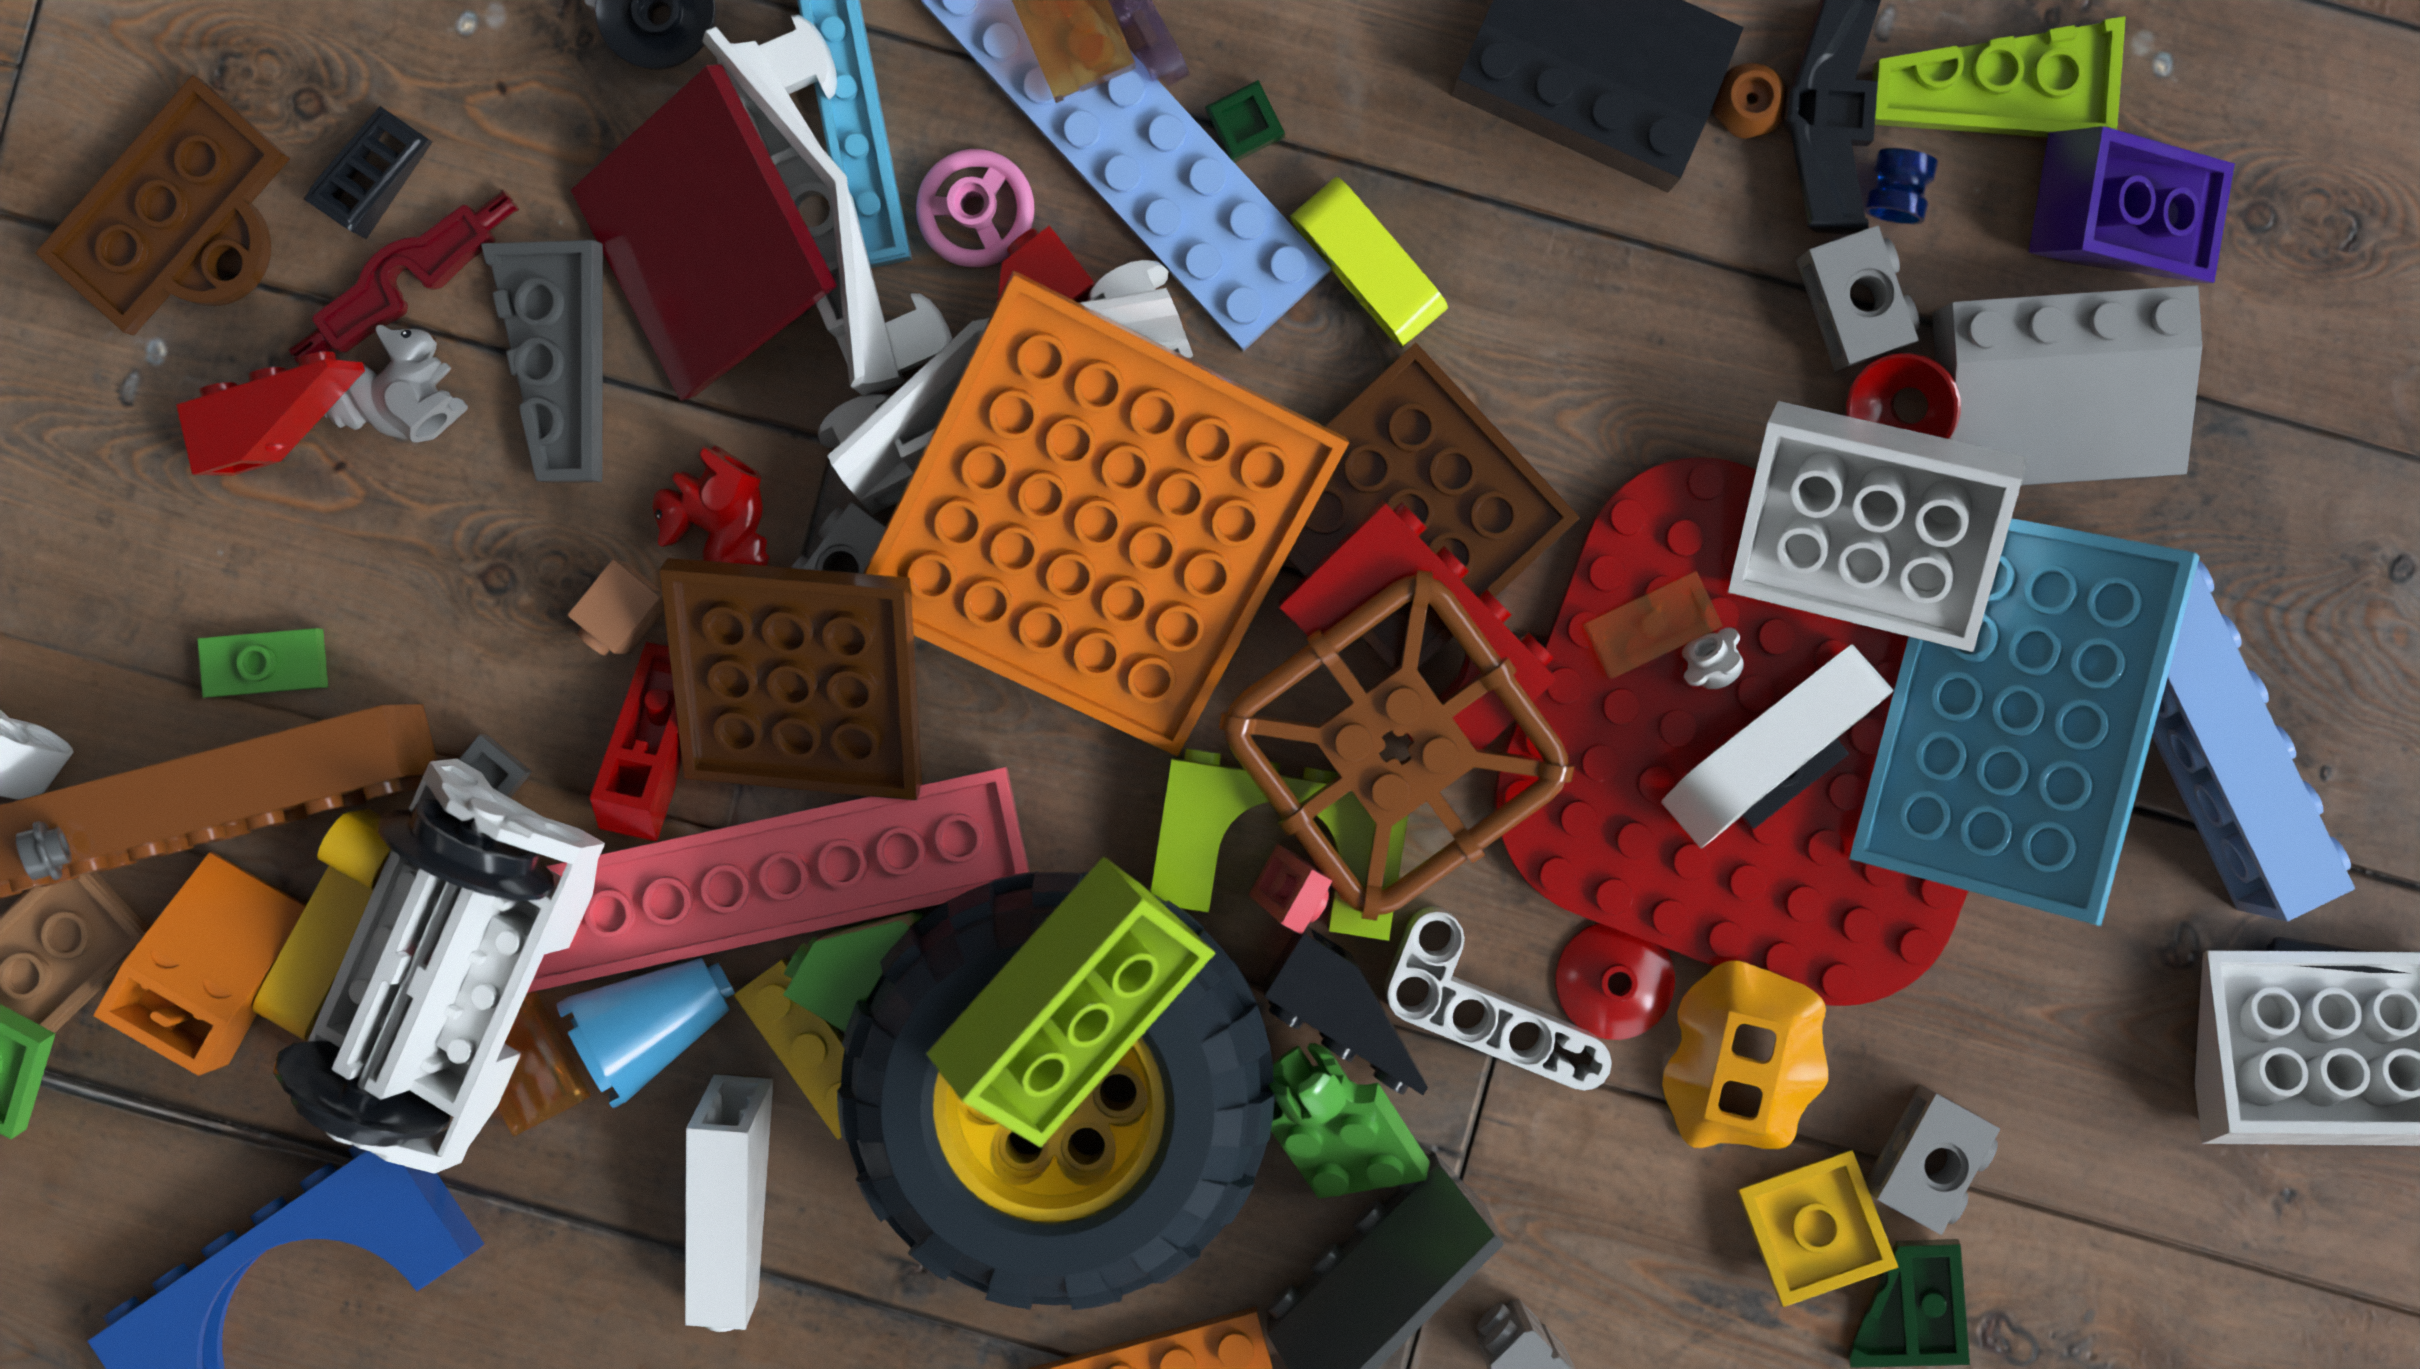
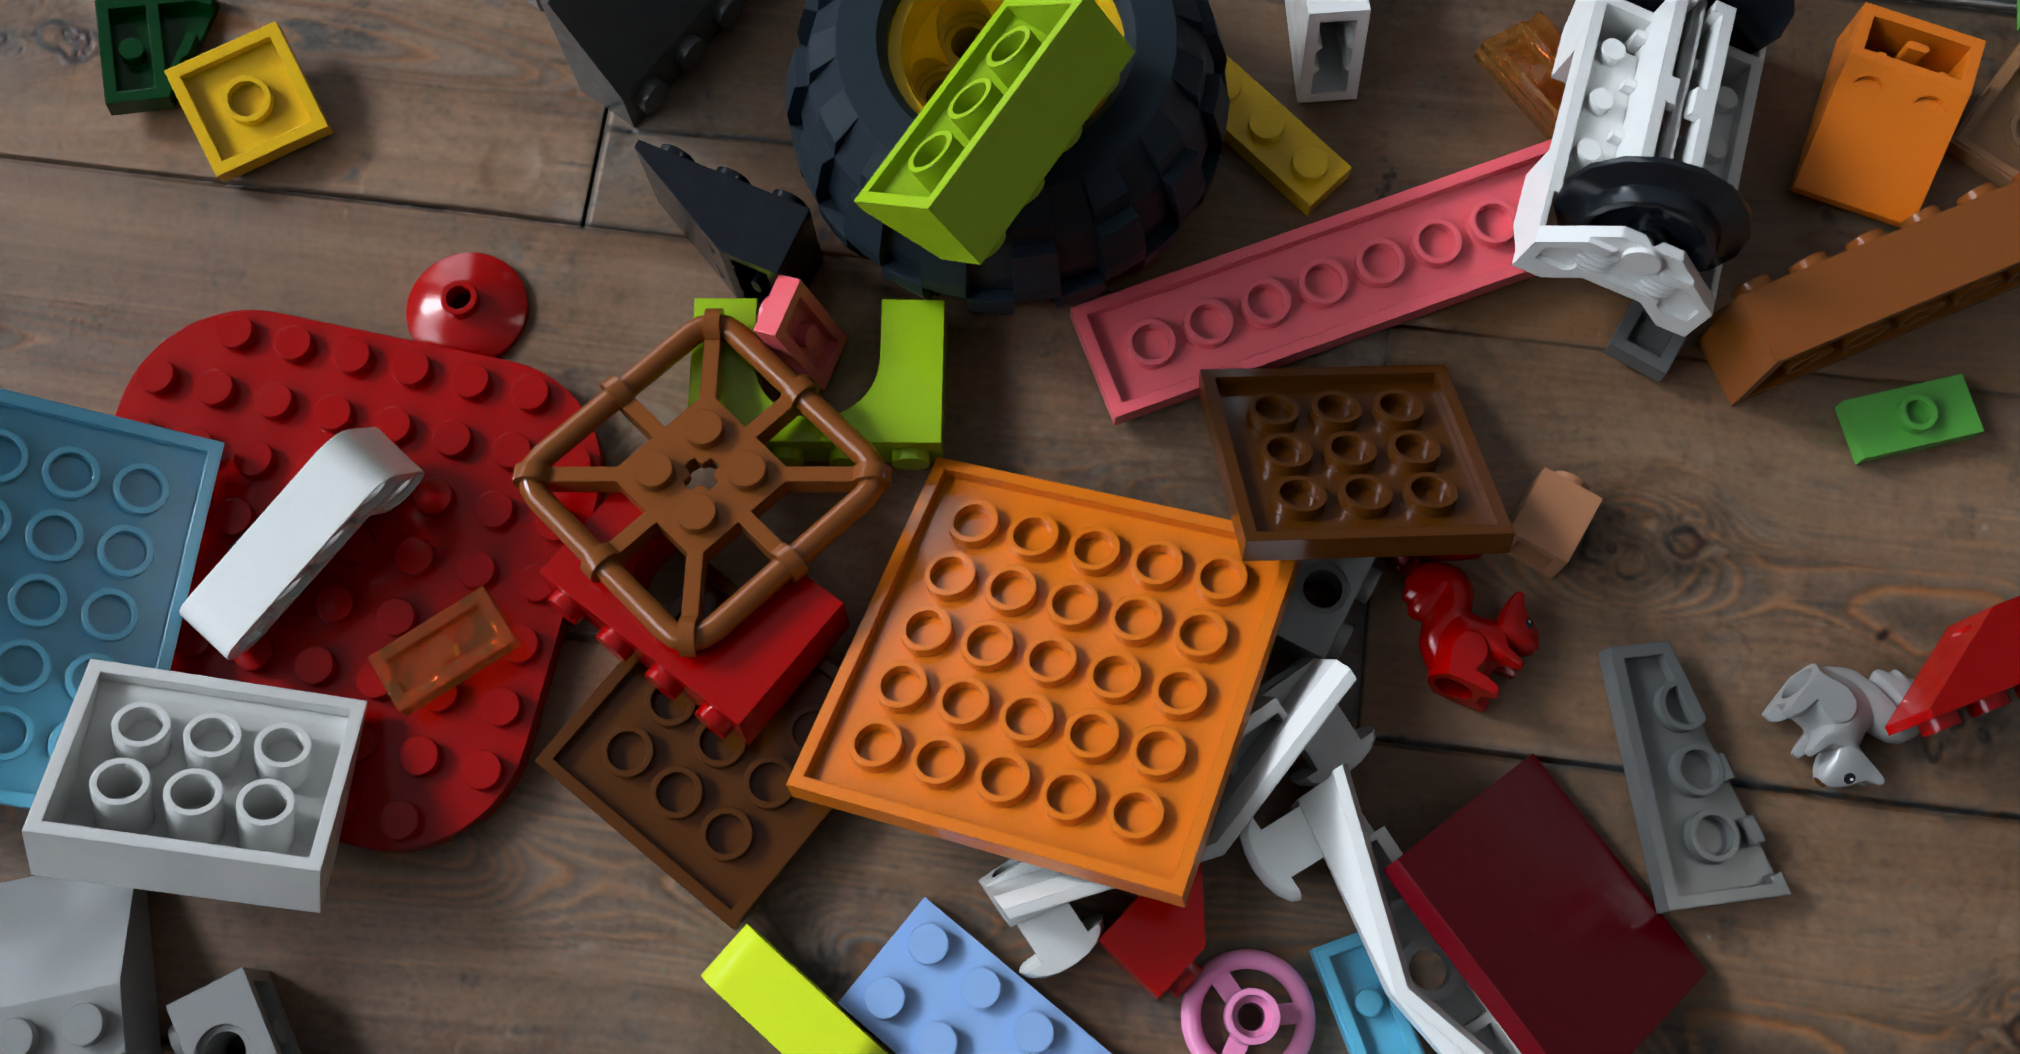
camera: 170 degrees right, 15 degrees down
(321, 937) = (1772, 169): yellow beam -> none
(340, 172) = (1971, 944): black slope -> none
(432, 260) = (1892, 822): dark red piece -> none
(642, 754) = (1493, 379): red slope -> none
(644, 1023) = (1437, 119): dark azure cone -> none
(844, 966) = (1244, 194): bright green slope -> none
(1340, 1131) = (722, 110): bright green plate -> none
(1499, 1011) = (577, 250): white beam -> none
(1705, 1060) = (363, 265): light orange piece -> none
(1713, 659) = (368, 610): white plate -> none
(1877, 385) = (147, 913): red piece -> none
(1924, 1126) = (144, 210): light grey brick -> none

